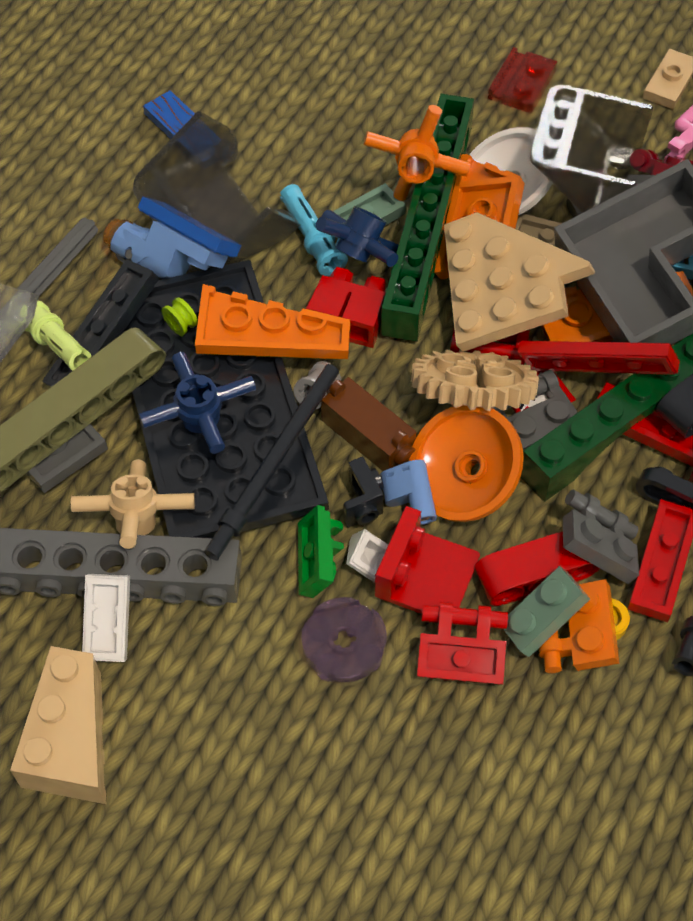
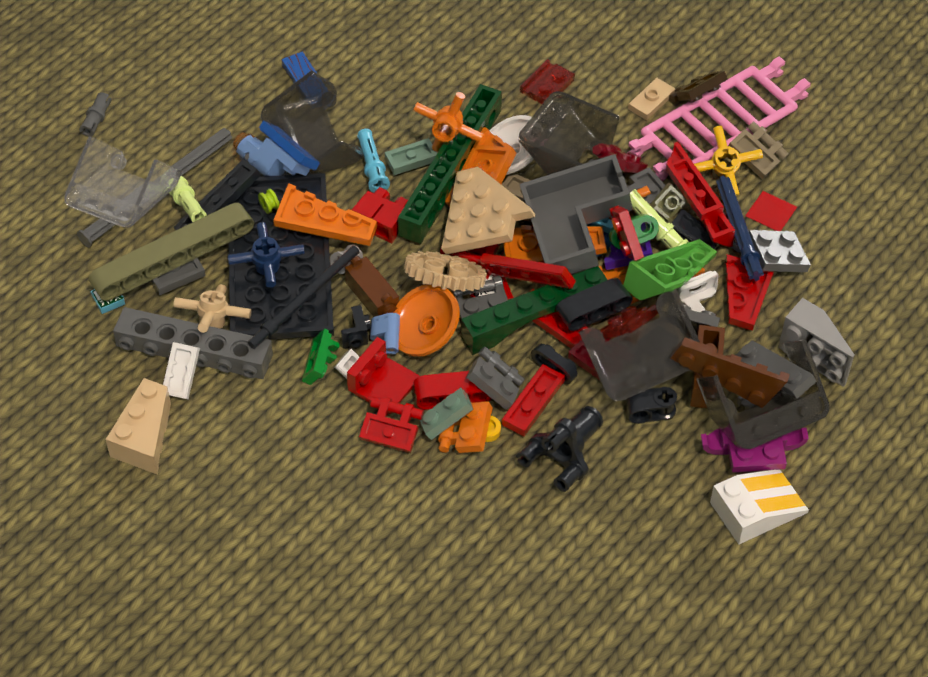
camera: 10 degrees right, 5 degrees down
(332, 660) = (325, 422): plate -> none
(359, 235) = (397, 168): dark blue bar -> none

